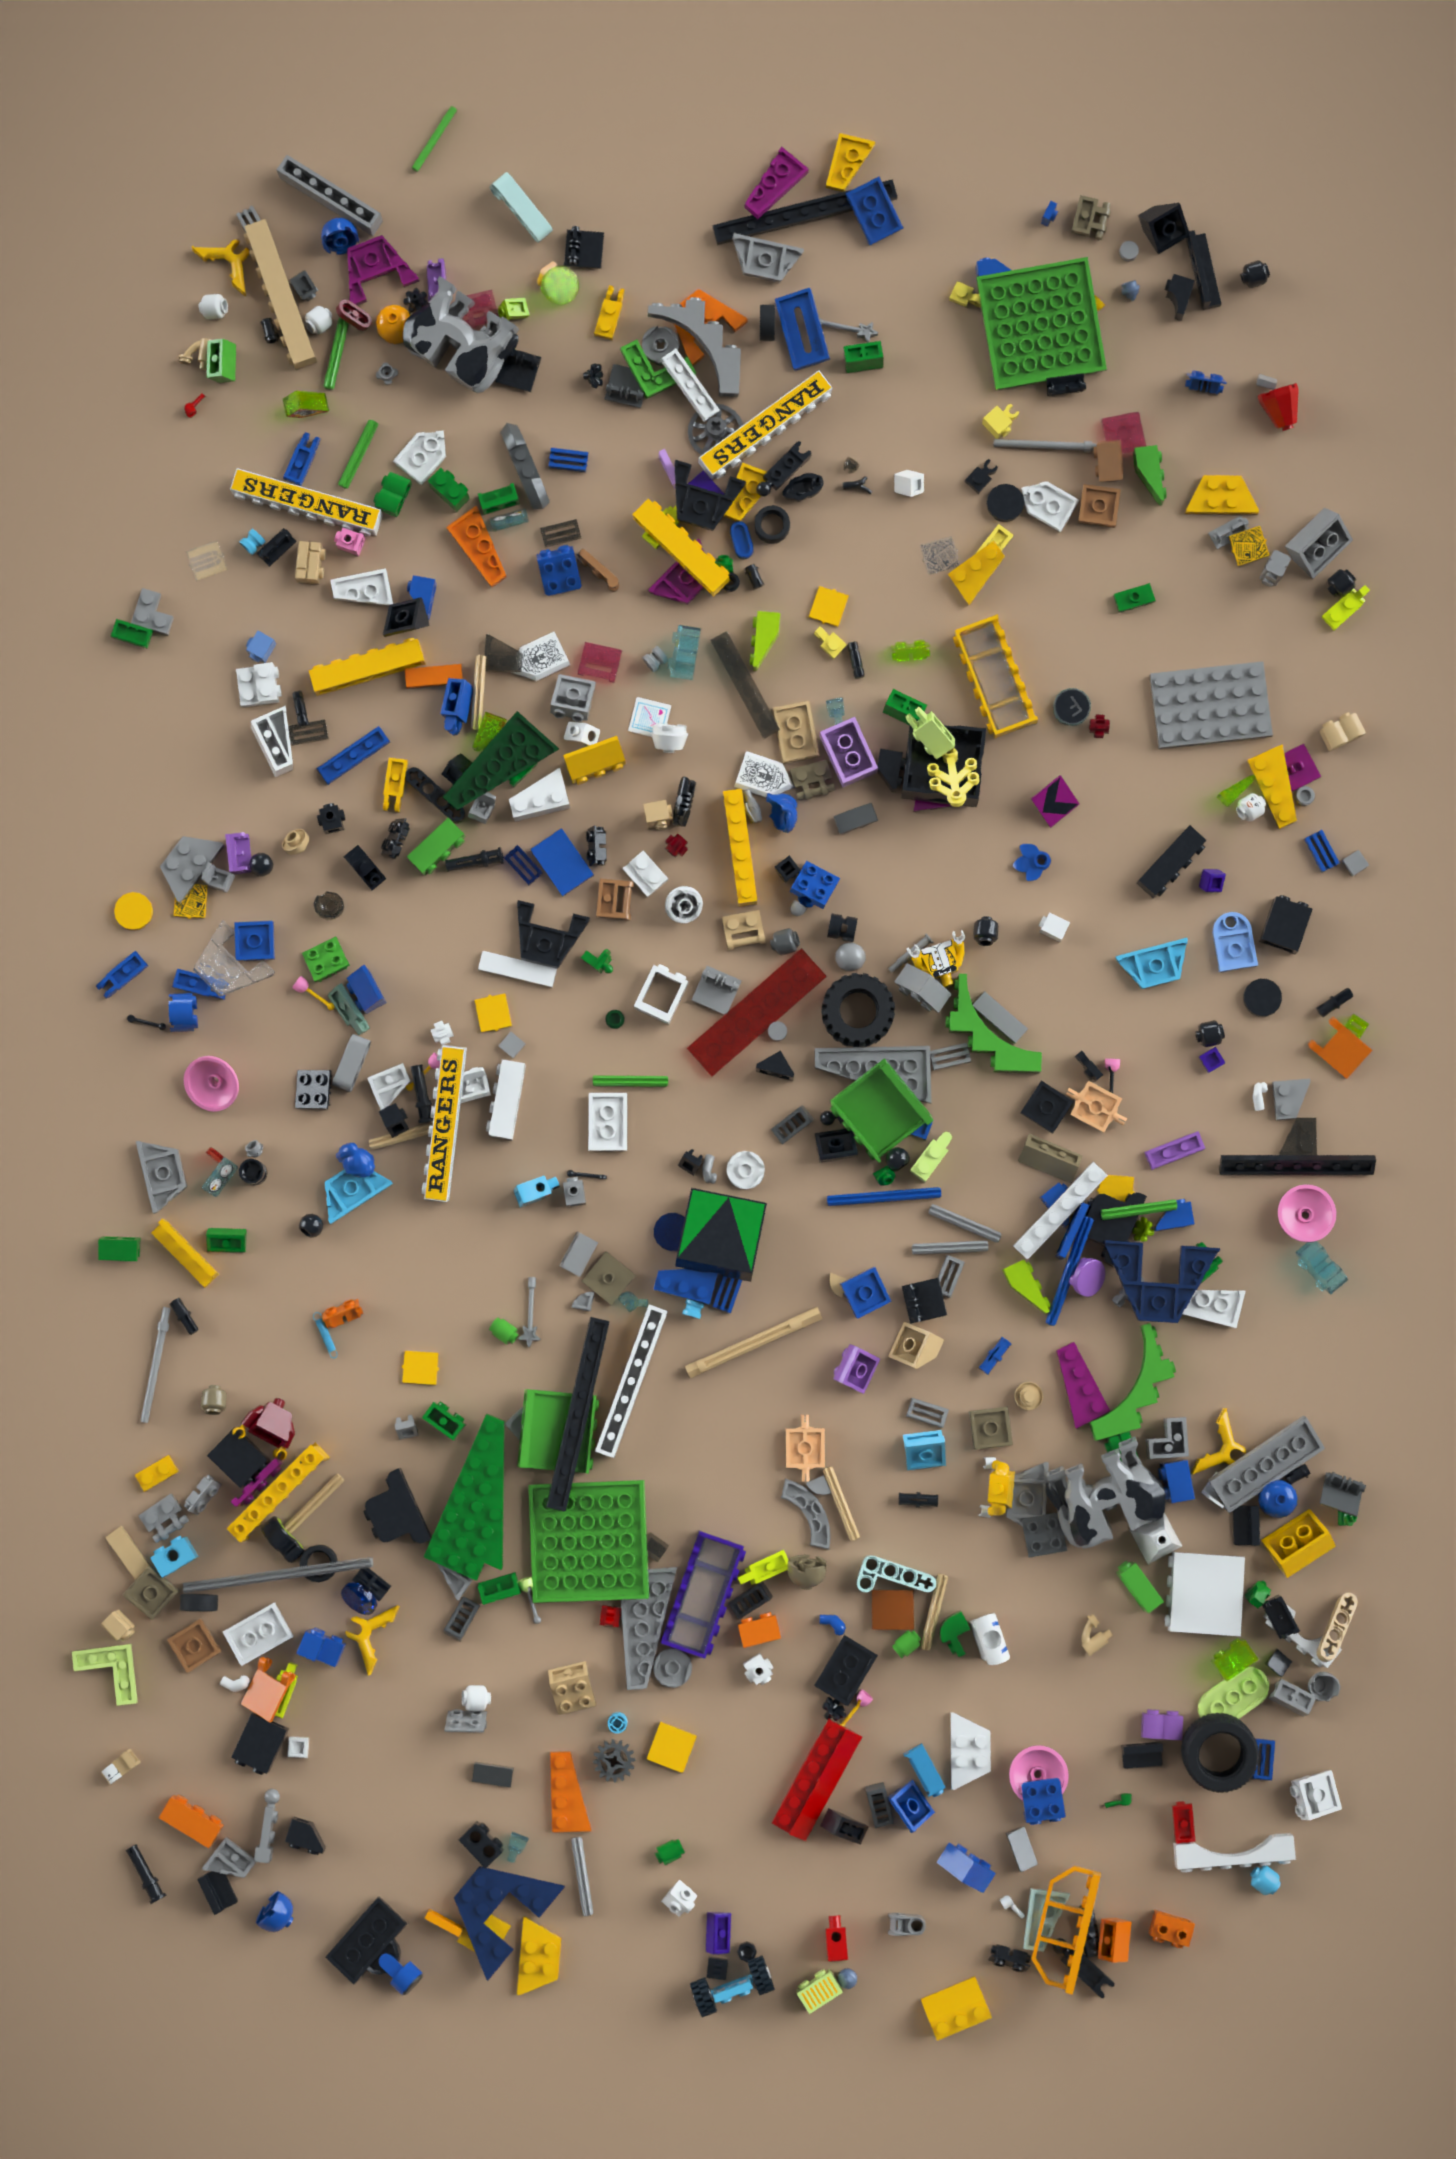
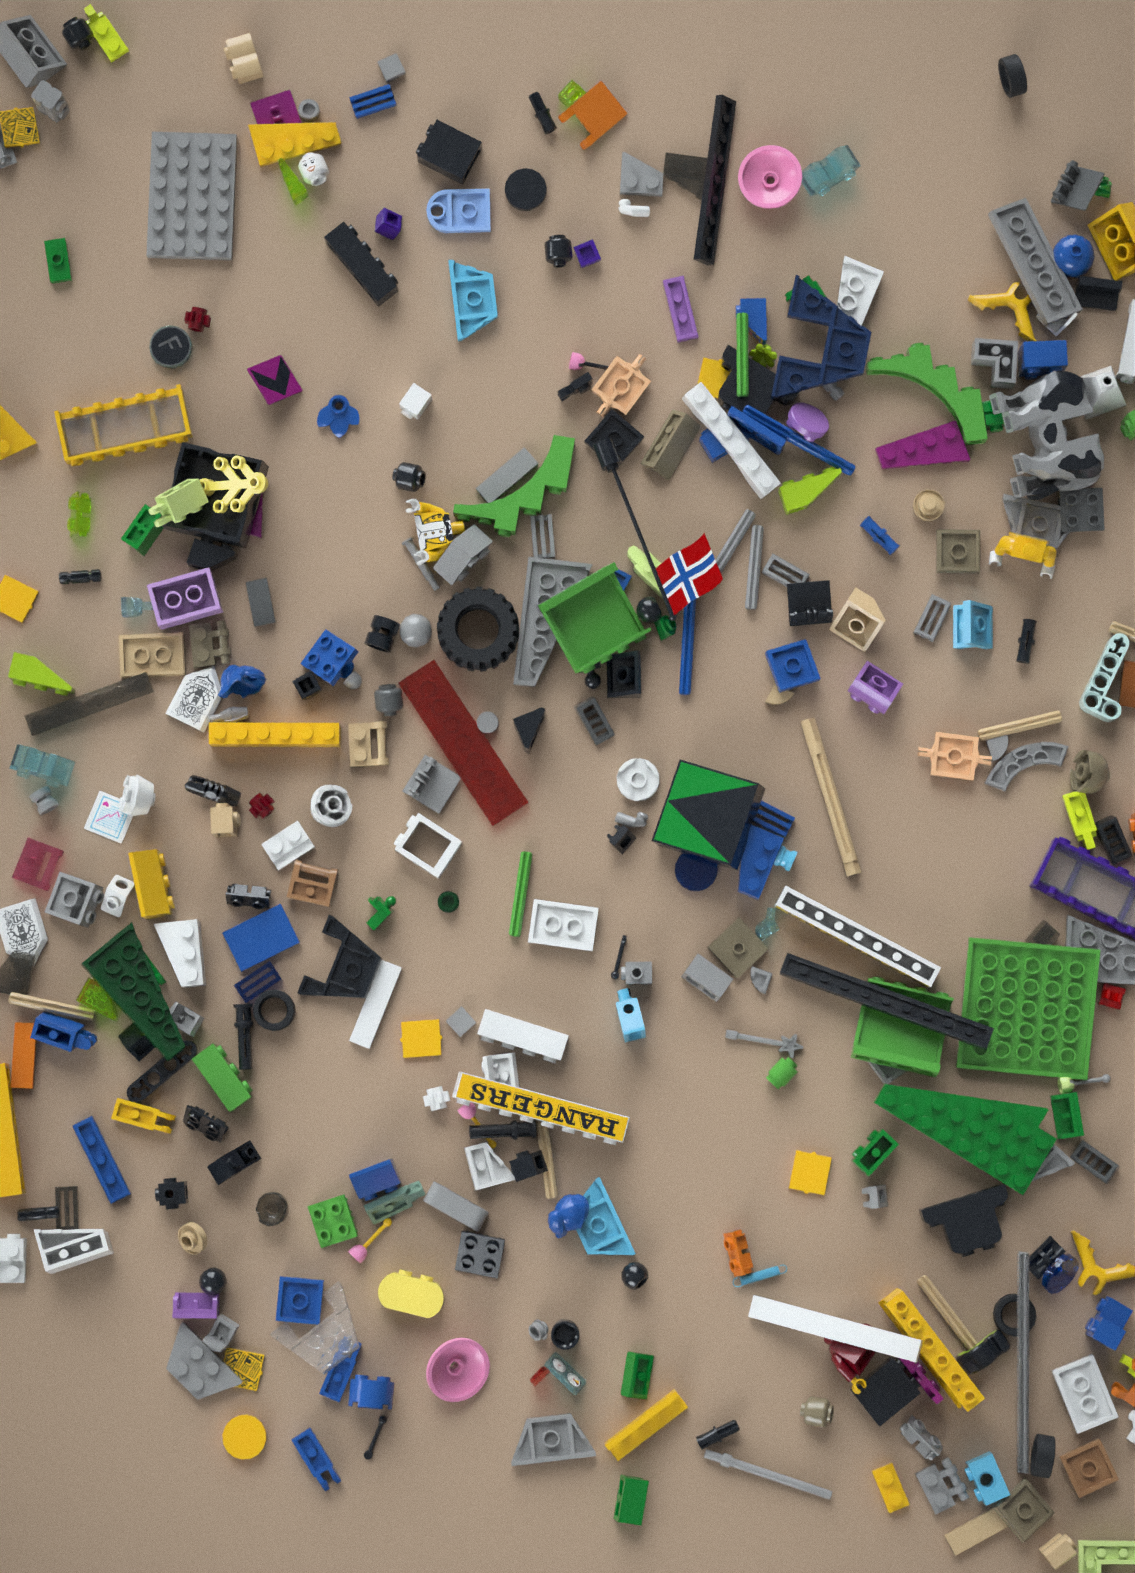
camera: 85 degrees left, 0 degrees up
(271, 1035) = (411, 1294): none -> light yellow brick
(285, 1405) = (835, 1328): none -> white tile
(500, 868) = (258, 1013): none -> black tyre
(831, 644) = (57, 600): light yellow plate -> none
(934, 1186) = (683, 574): none -> flag
(1298, 1474) = (1049, 230): black pin -> none
(1436, 1421) = (1012, 75): none -> black tyre

